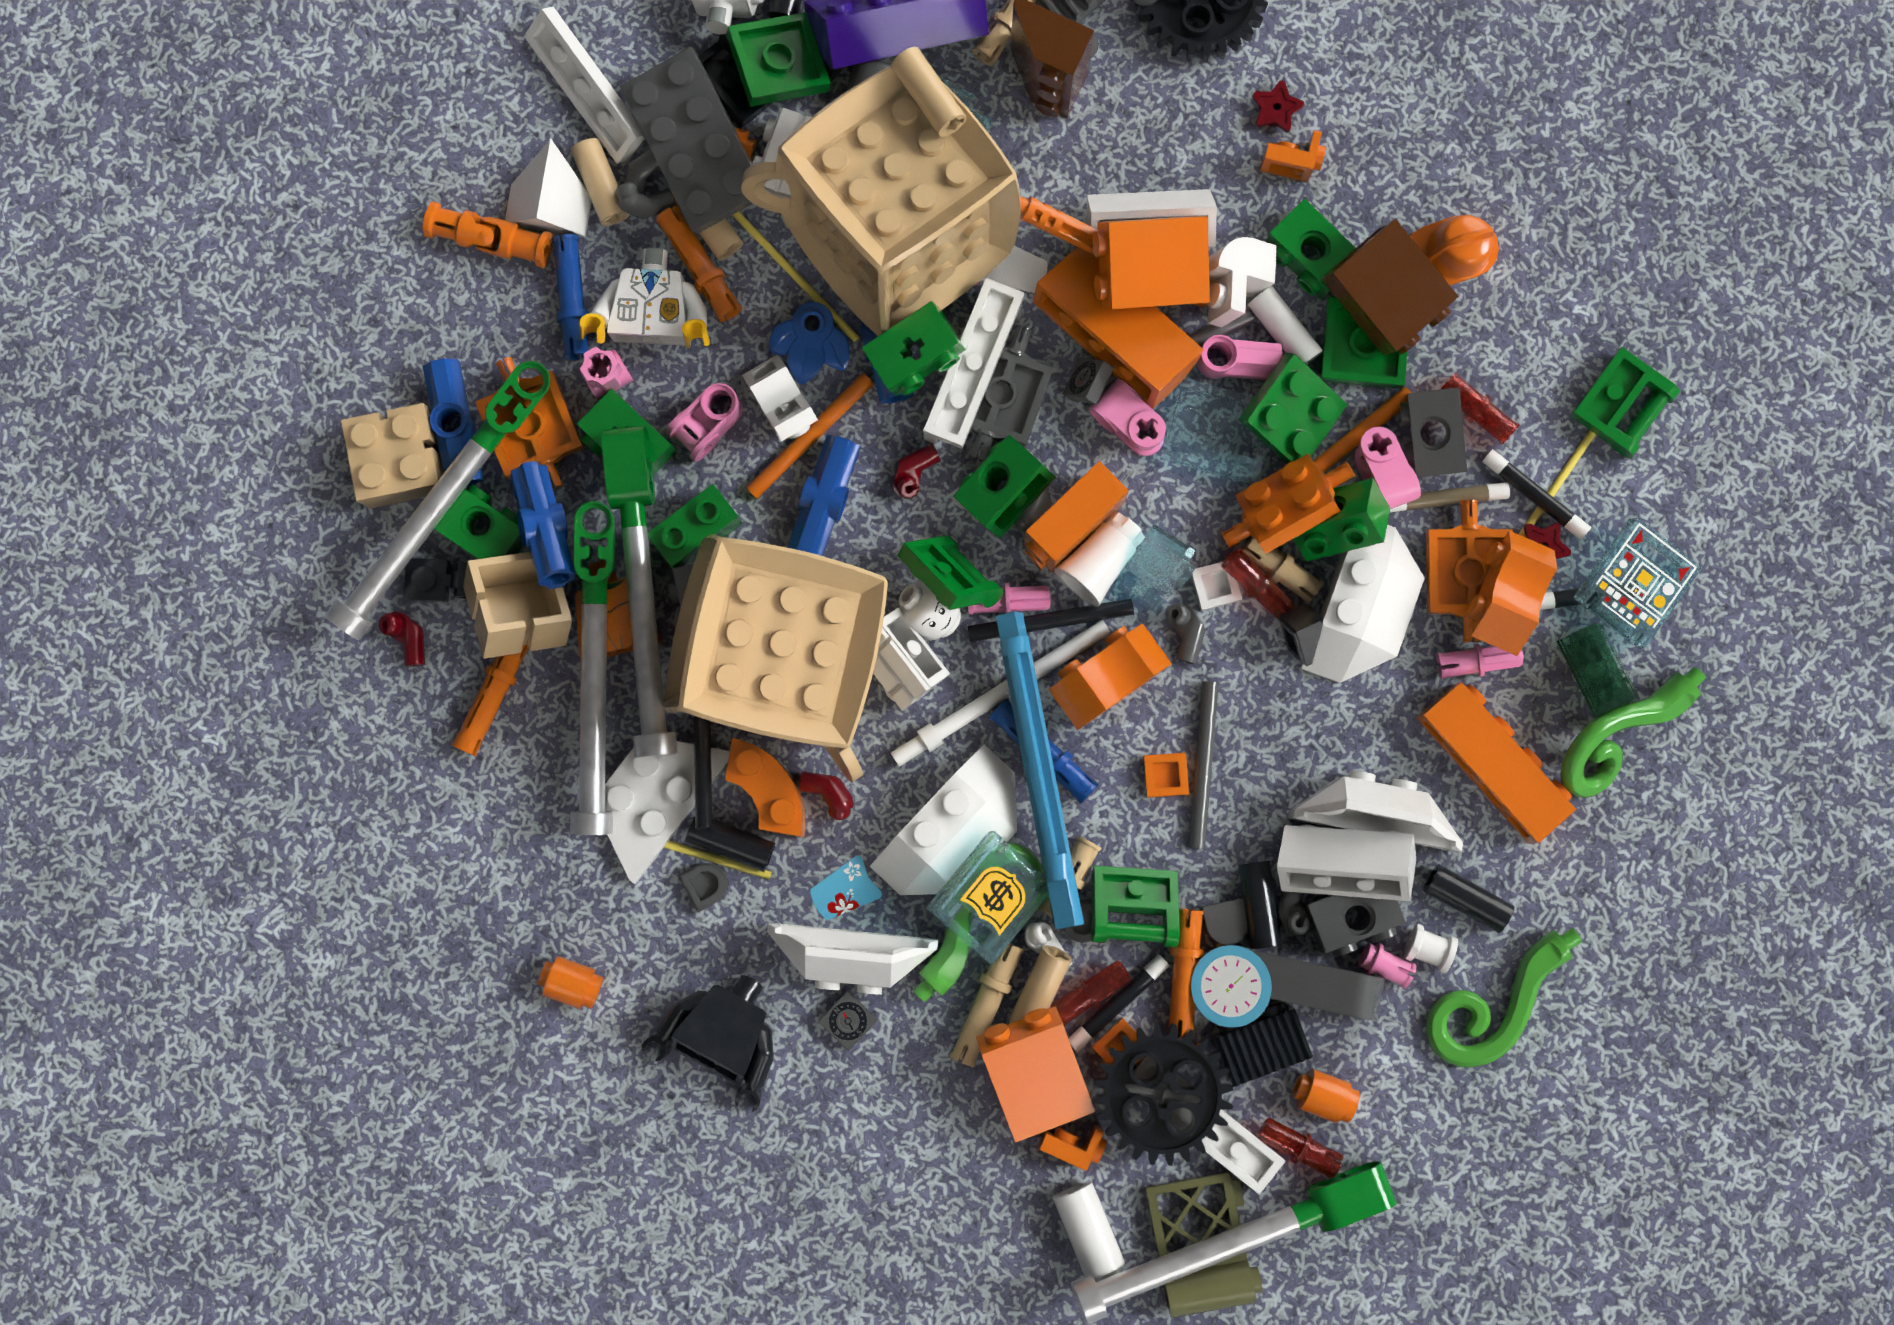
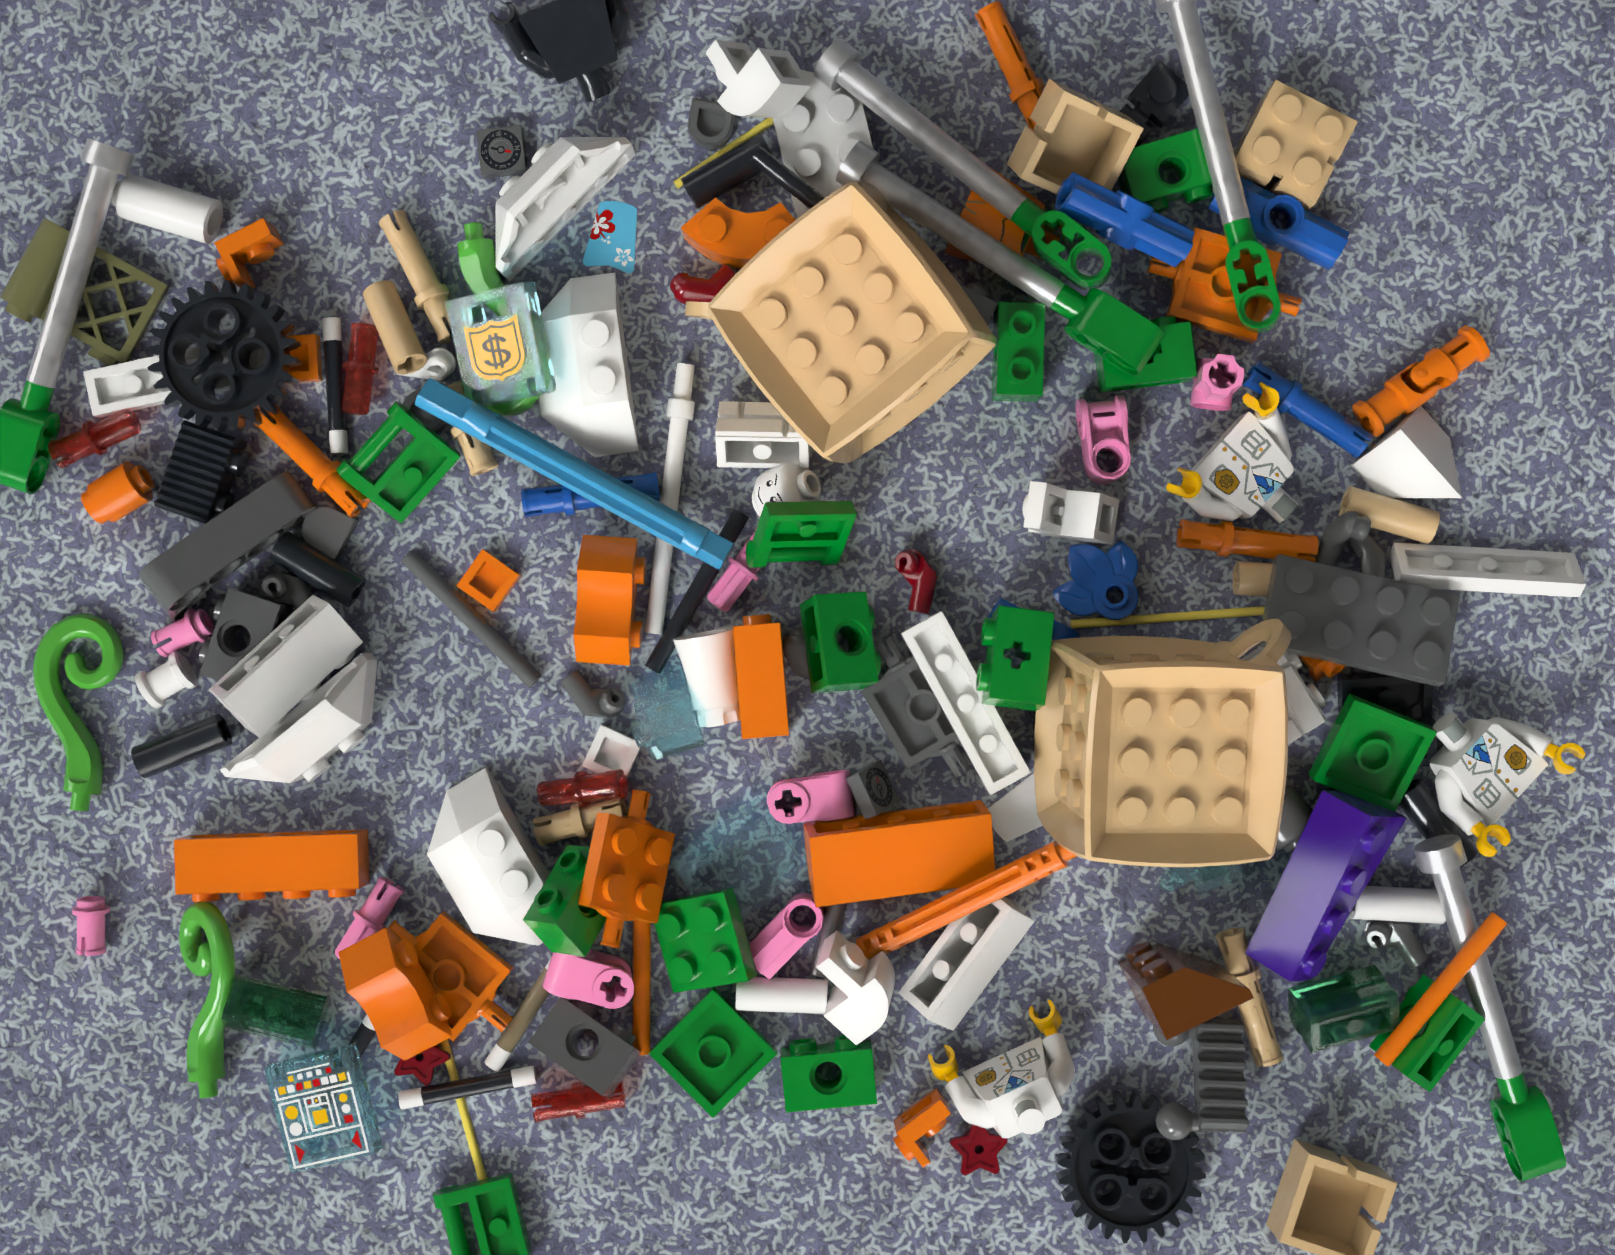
camera: 115 degrees right, 5 degrees up
(408, 634) = (1127, 41): dark red arm -> none
(654, 867) = (757, 83): none -> white brick
(805, 441) = (1021, 536): orange bar -> none
(824, 495) = (955, 482): blue piece -> none
(929, 91) = (1225, 843): tan piece -> none
(1035, 1073) = (328, 265): orange brick -> none
(1152, 262) = (924, 923): orange brick -> none
(1213, 113) = (1017, 1087): none -> white torso
(1231, 986) = (266, 486): sticker -> none
(1302, 632) = (511, 791): black slope -> none
(1391, 288) = (737, 1110): reddish brown brick -> none
(1459, 247) = (733, 1190): orange piece -> none
(1651, 858) = (90, 925): none -> bright pink pin

